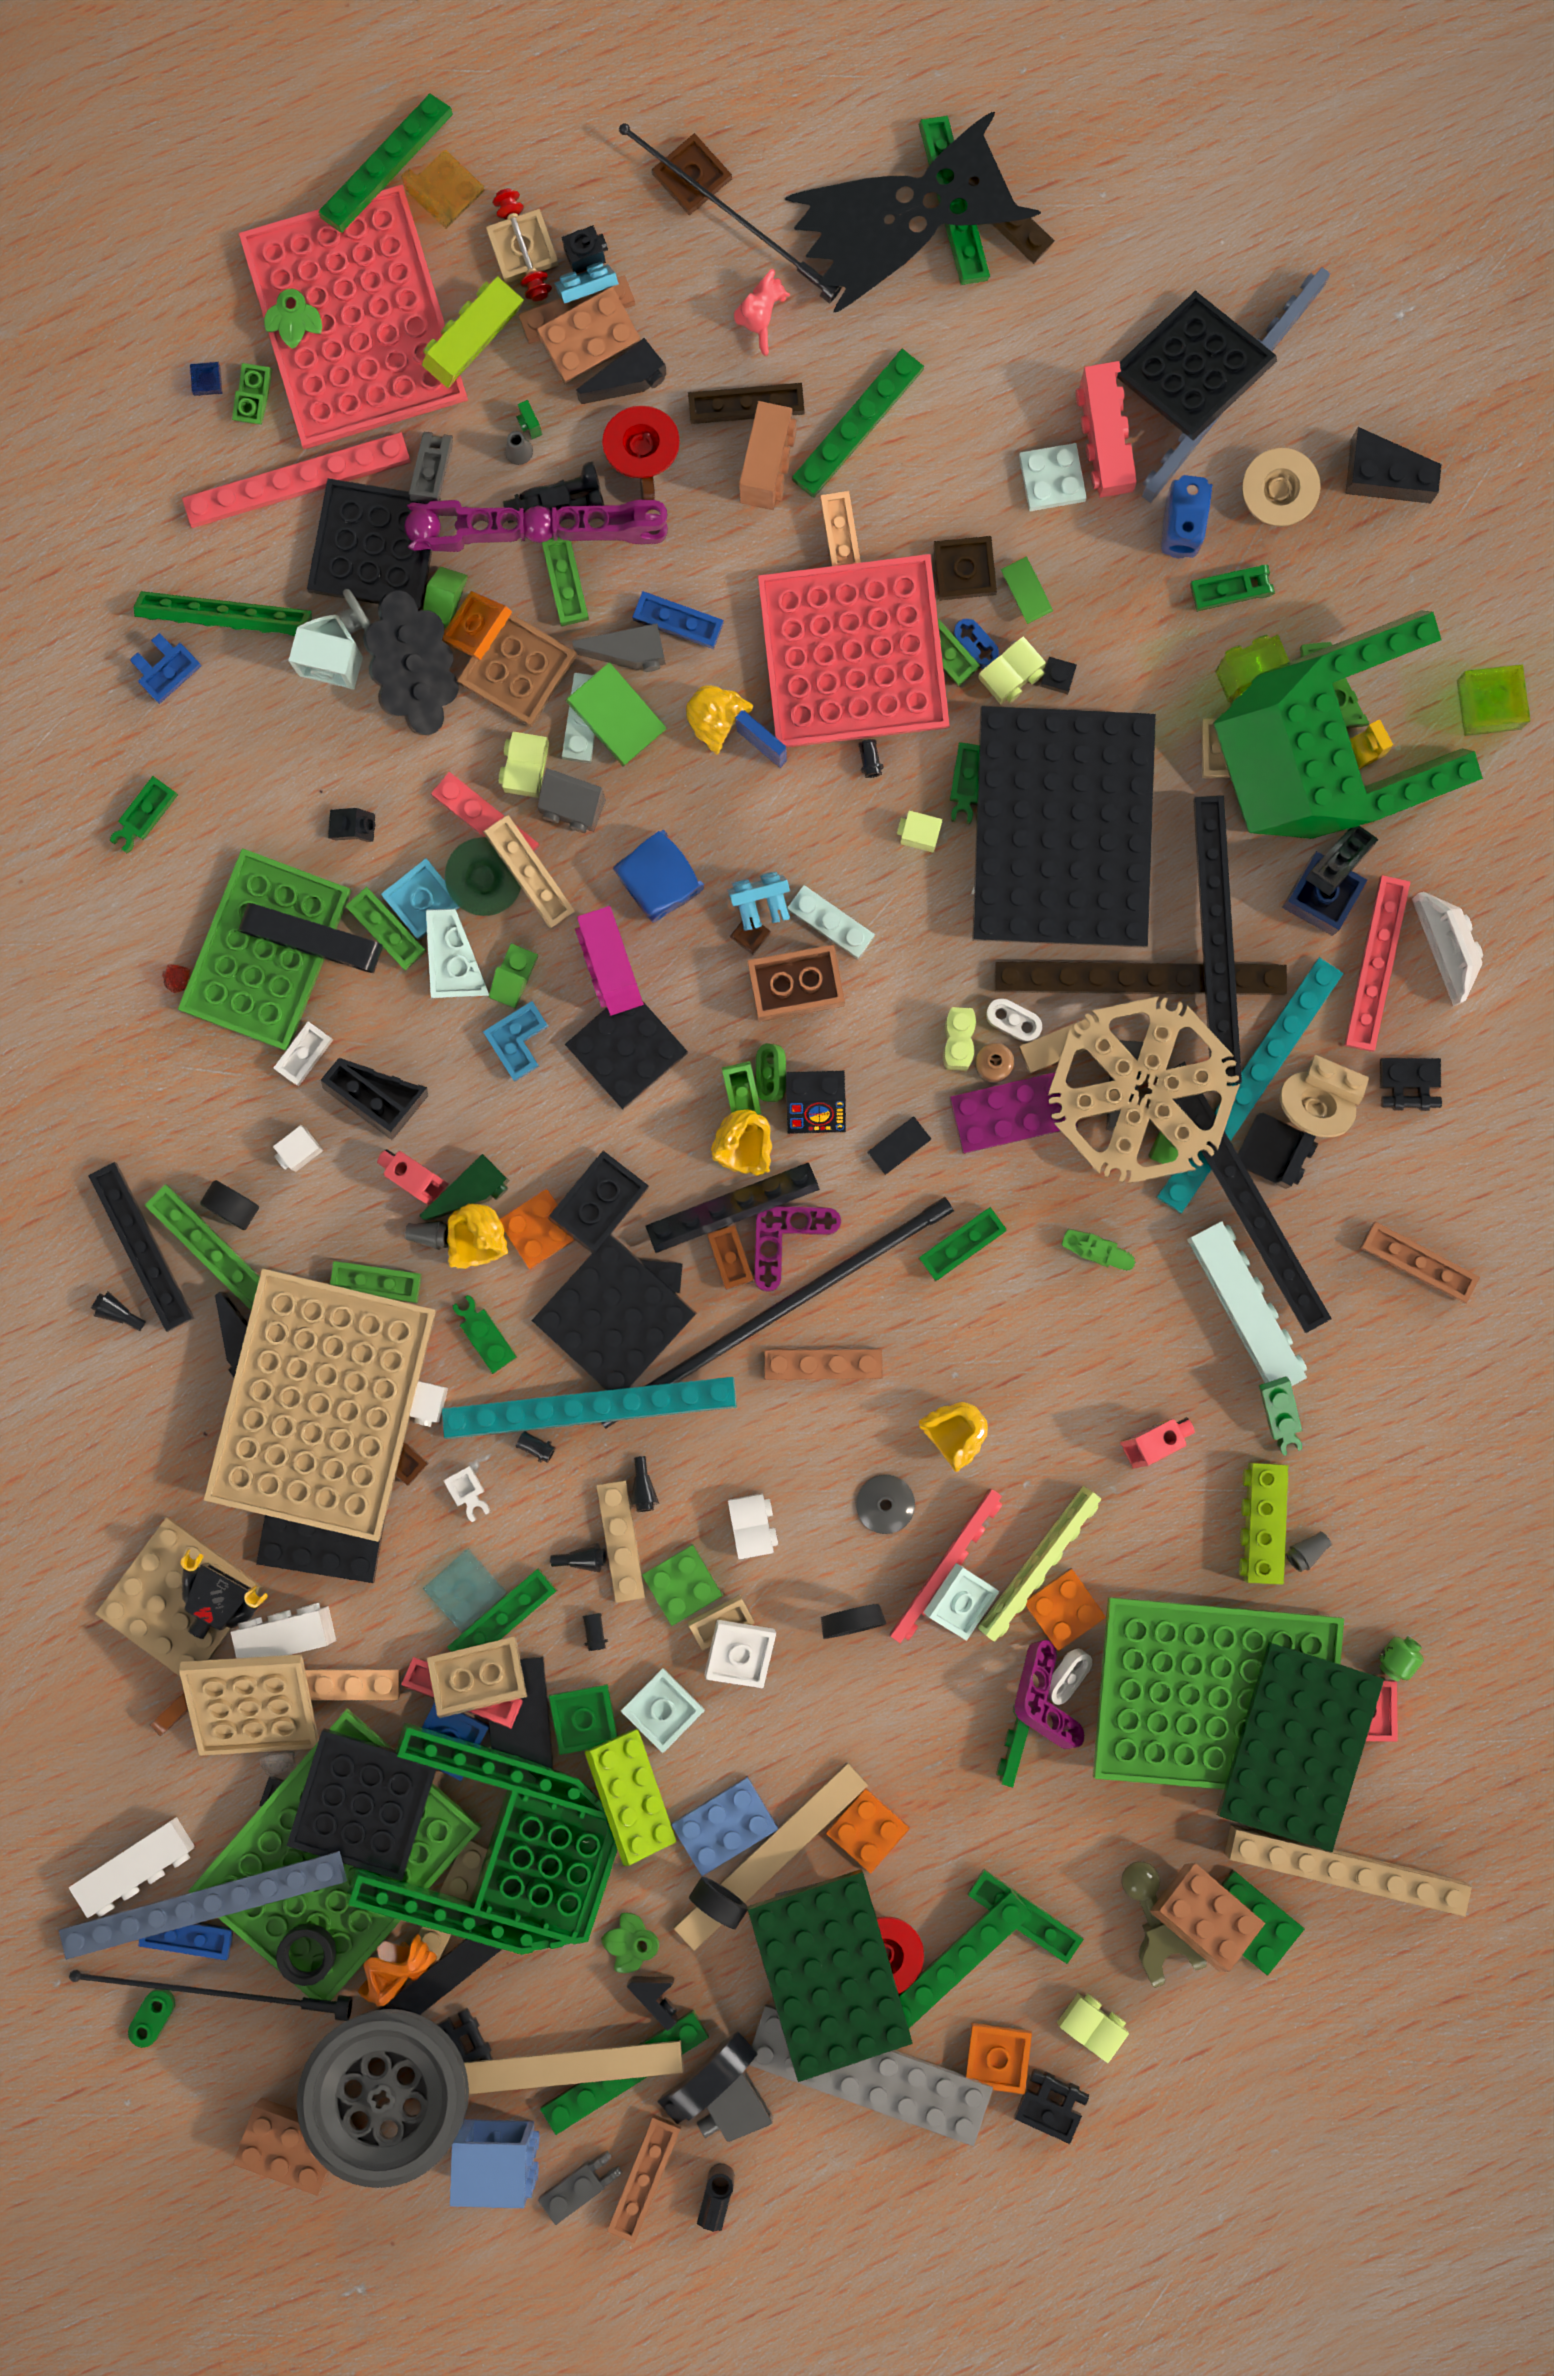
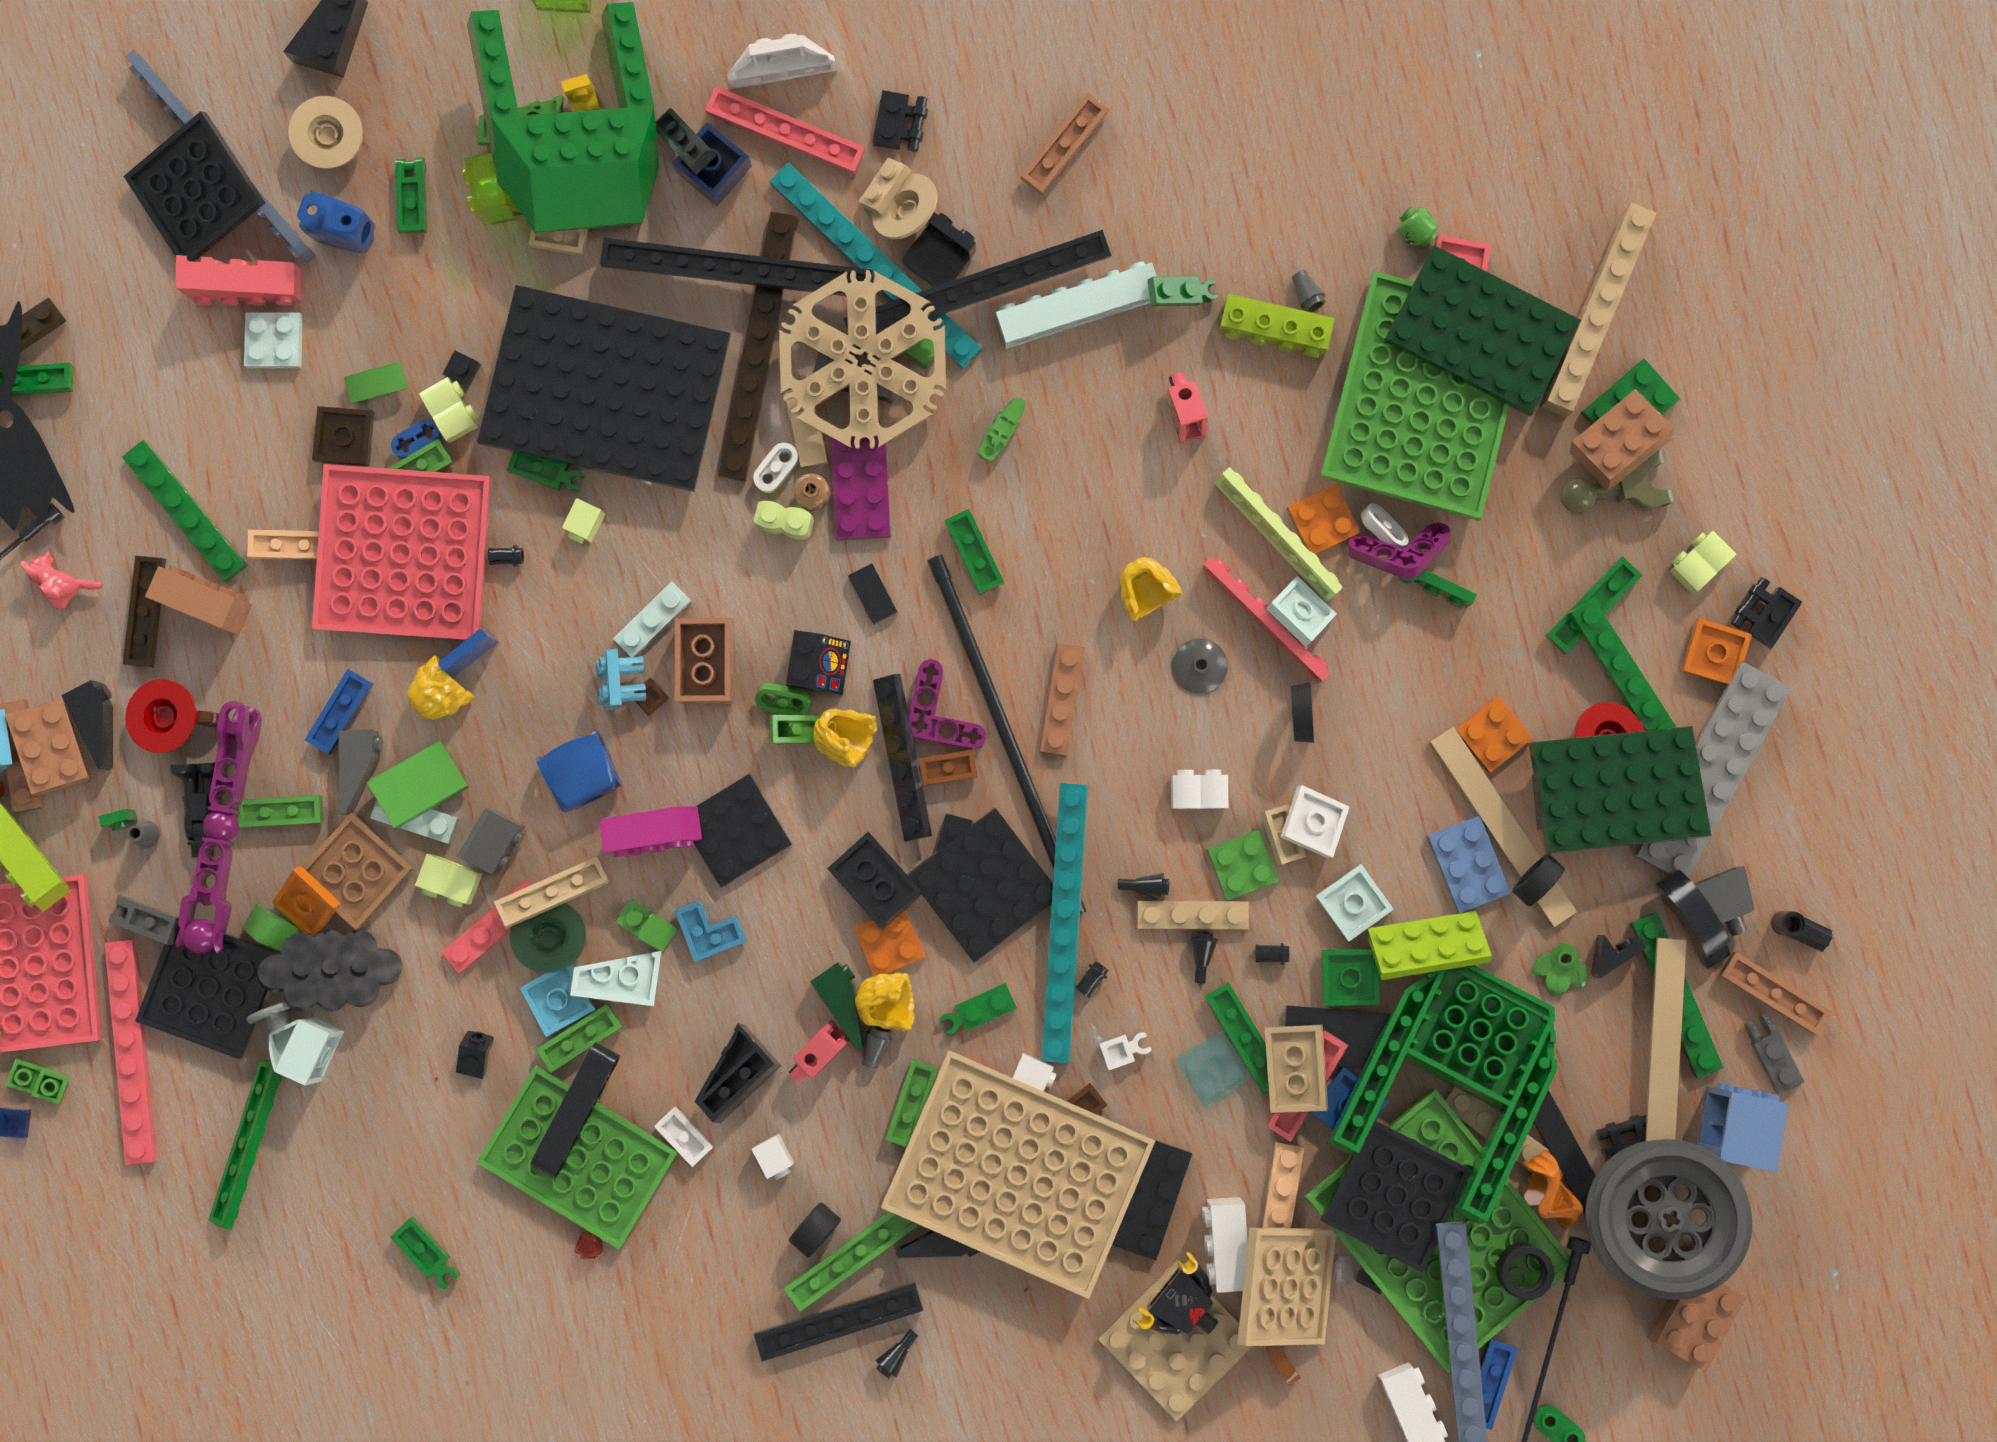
camera: 80 degrees left, 0 degrees up
(168, 672) = (293, 1206): blue plate -> none

